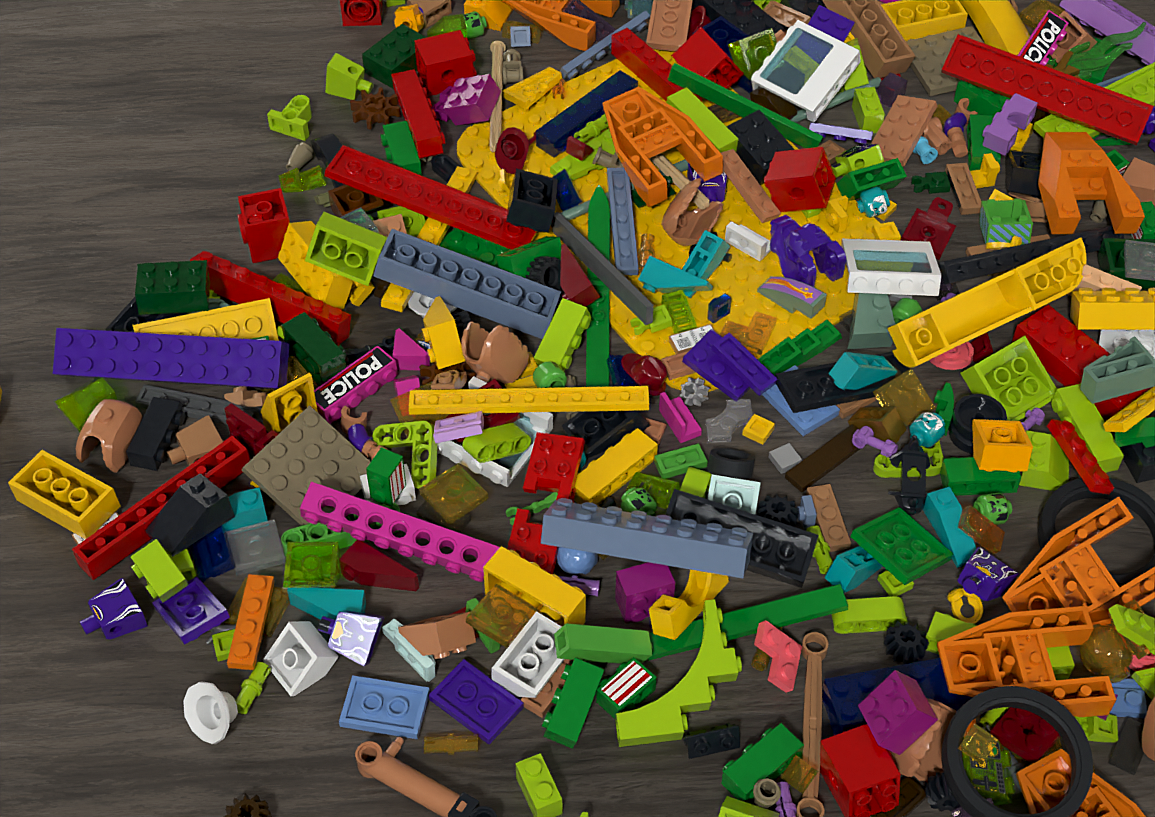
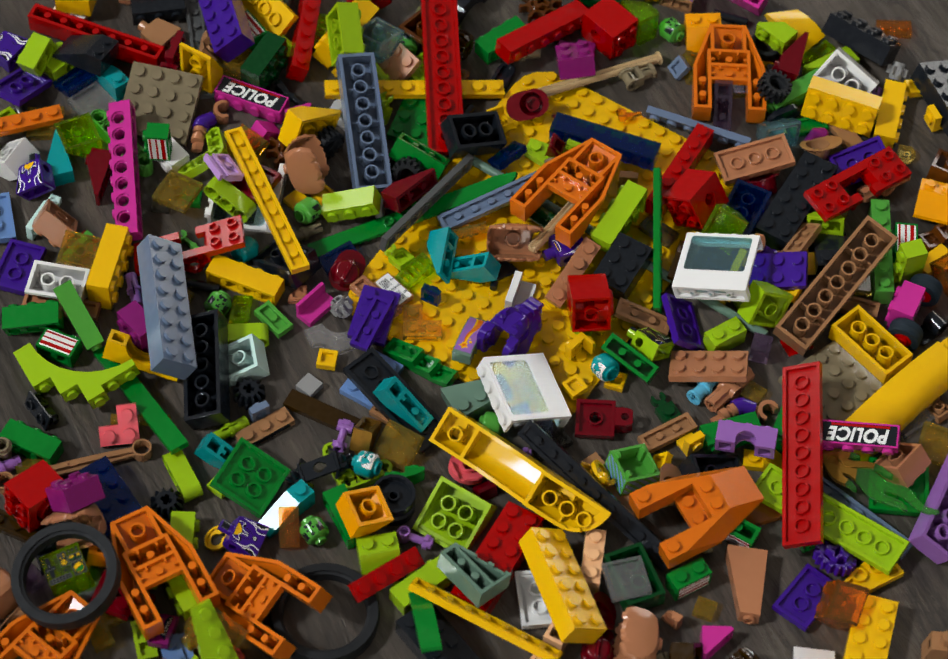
camera: 65 degrees right, 5 degrees up
(449, 380) = (267, 150): medium nougat slope -> none
(532, 88) = (618, 96): yellow wing -> none
(731, 463) = (274, 356): black tyre -> none
(978, 744) = (59, 541): clear yellow tile -> none

